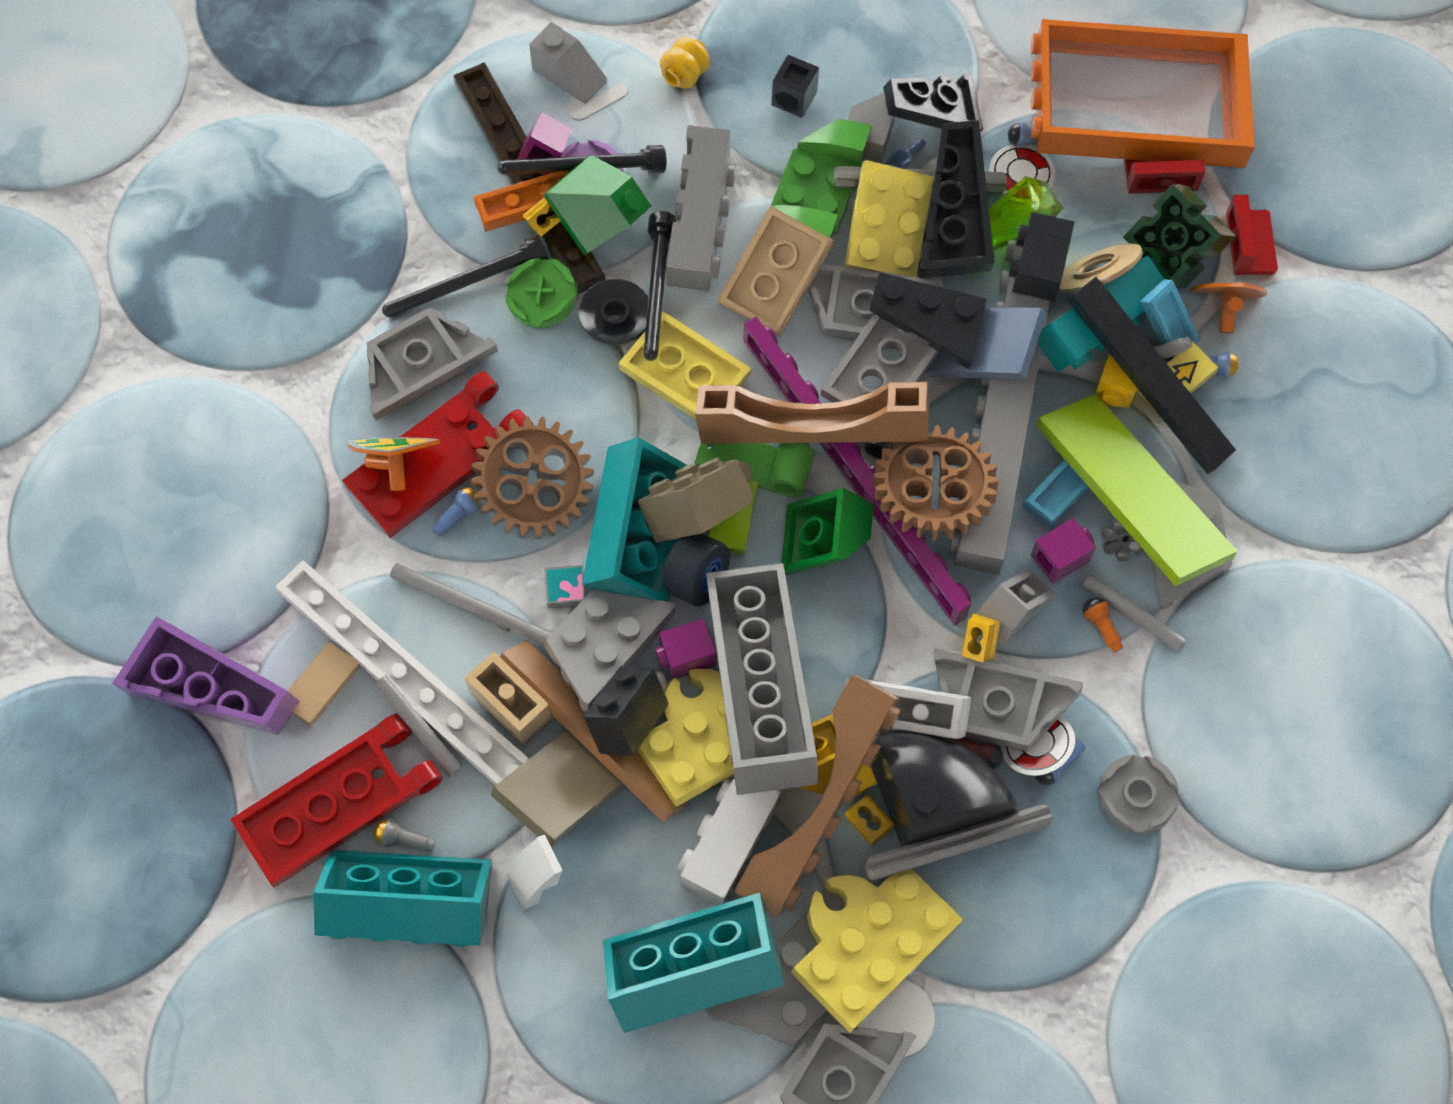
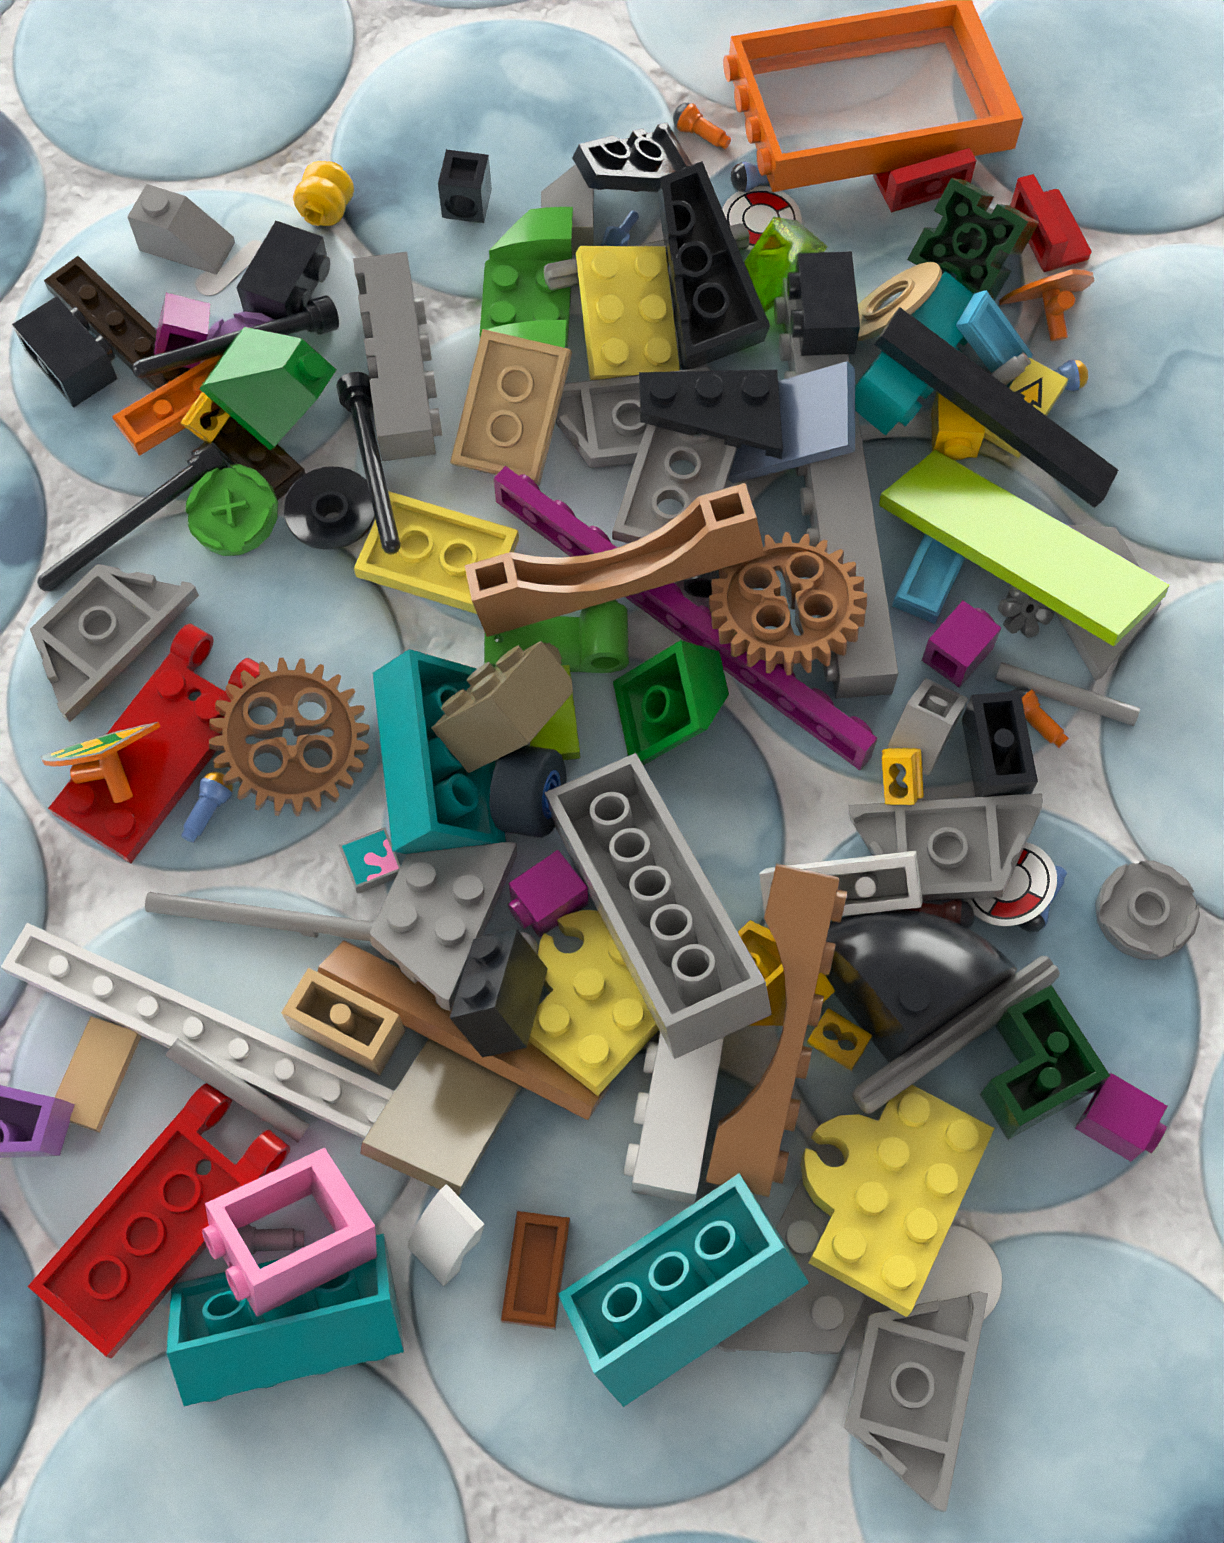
camera: 15 degrees left, 0 degrees up
(431, 863) = (308, 1267): none -> bright pink window
(453, 135) = (66, 350): none -> black brick
(592, 919) = (535, 1270): none -> dark orange tile
(635, 118) = (284, 272): none -> black brick
(990, 75) = (689, 119): none -> orange piece
(1020, 890) = (1053, 1065): none -> dark green brick
(1062, 941) = (1123, 1118): none -> magenta brick
(1063, 636) = (999, 745): none -> black brick

